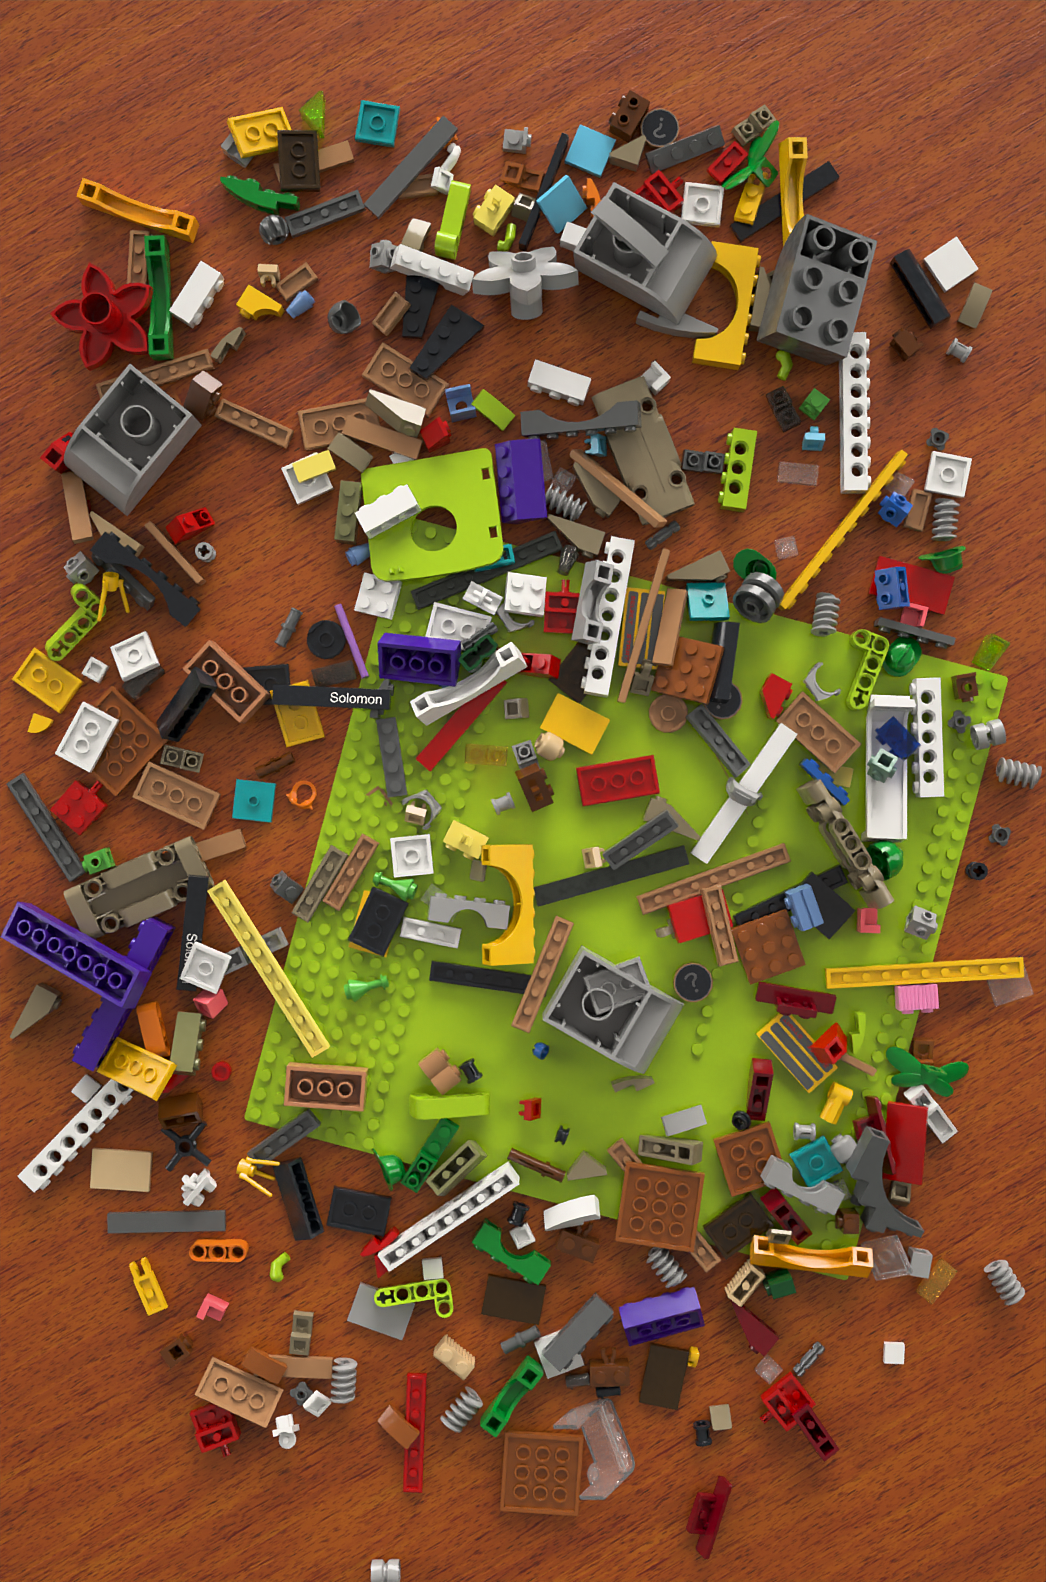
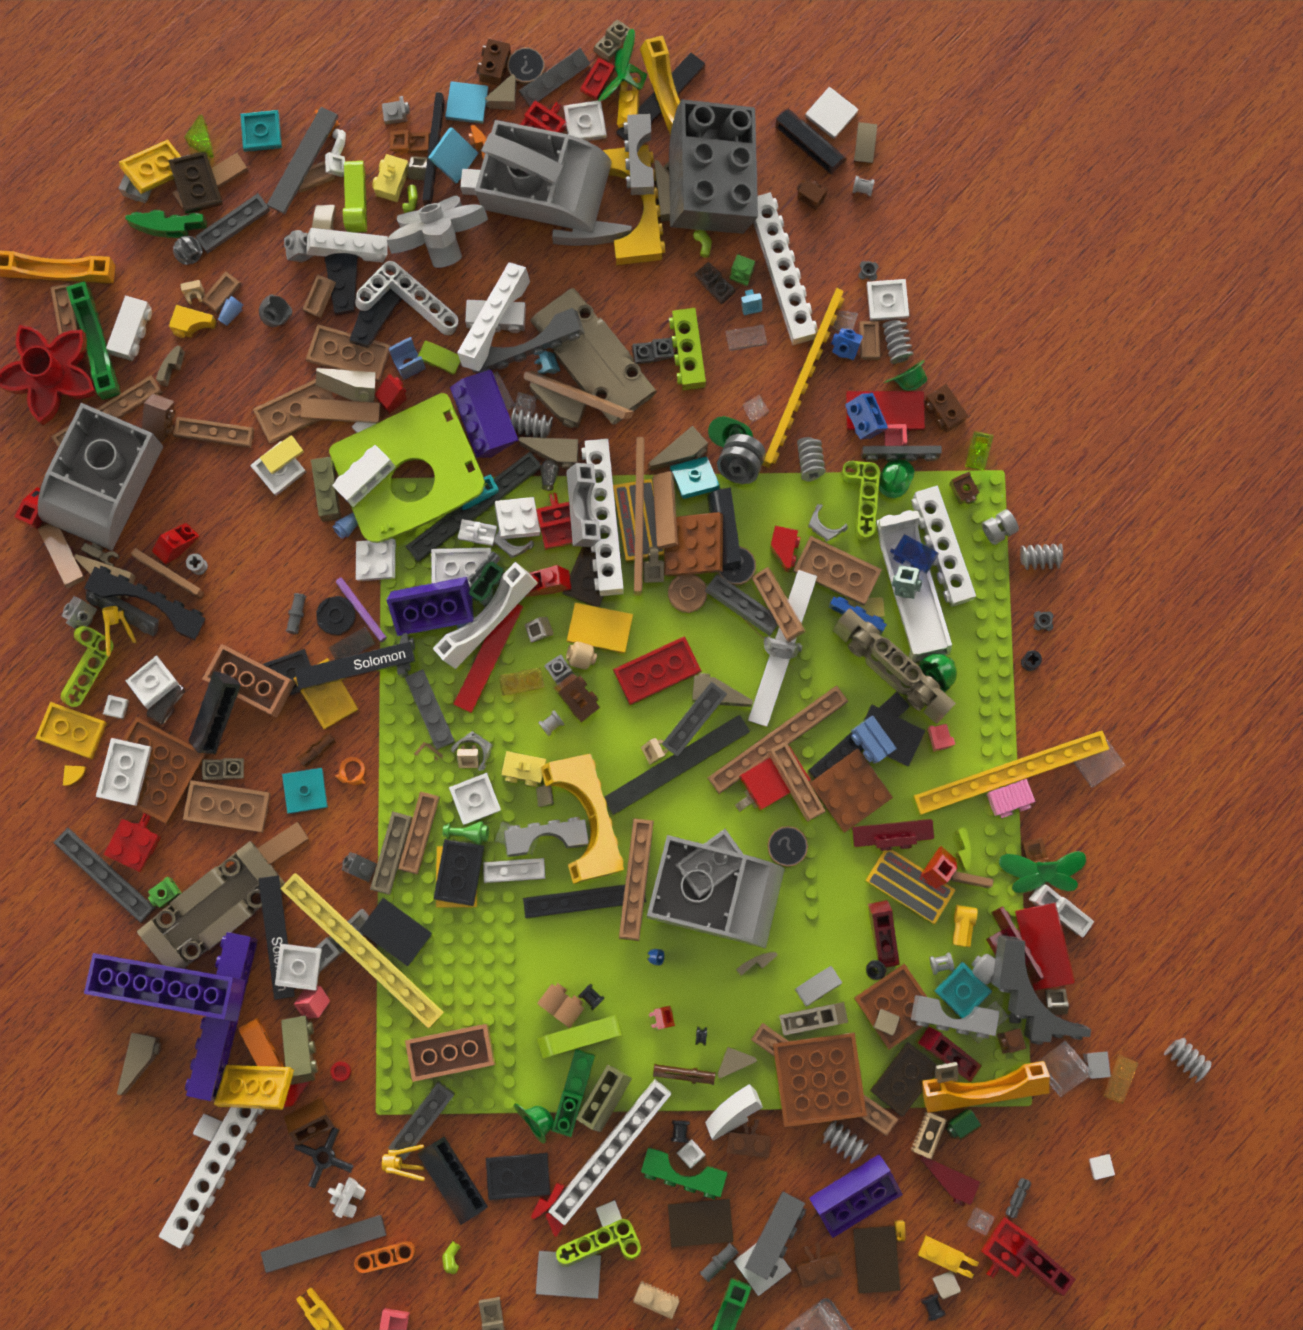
camera: 10 degrees left, 10 degrees down
(112, 513) = (96, 552): none -> dark tan plate
(121, 1169) = (263, 1202): tan tile -> none
(304, 959) = (395, 932): none -> black tile
(350, 452) = (313, 432): dark tan slope -> none
(356, 989) = (455, 946): bright green piece -> none
(478, 337) = (408, 295): none -> white beam
(536, 405) = (478, 341): none -> white arch
(577, 1380) = (789, 1289): clear smoke pin -> none
(602, 1392) = (823, 1290): black pin -> none
(656, 378) = (587, 286): white panel -> none
(662, 535) = (634, 428): dark grey axle -> none
(727, 1391) = (945, 1256): none -> yellow hinge
(737, 1173) = (886, 1022): none -> dark tan slope
(752, 751) = (778, 604): none -> medium nougat tile
(754, 233) = (639, 132): none -> light grey arch
(921, 923) = (992, 724): light grey brick -> none
(953, 722) = (964, 526): dark grey plate -> none
(970, 600) = (945, 408): none -> reddish brown brick

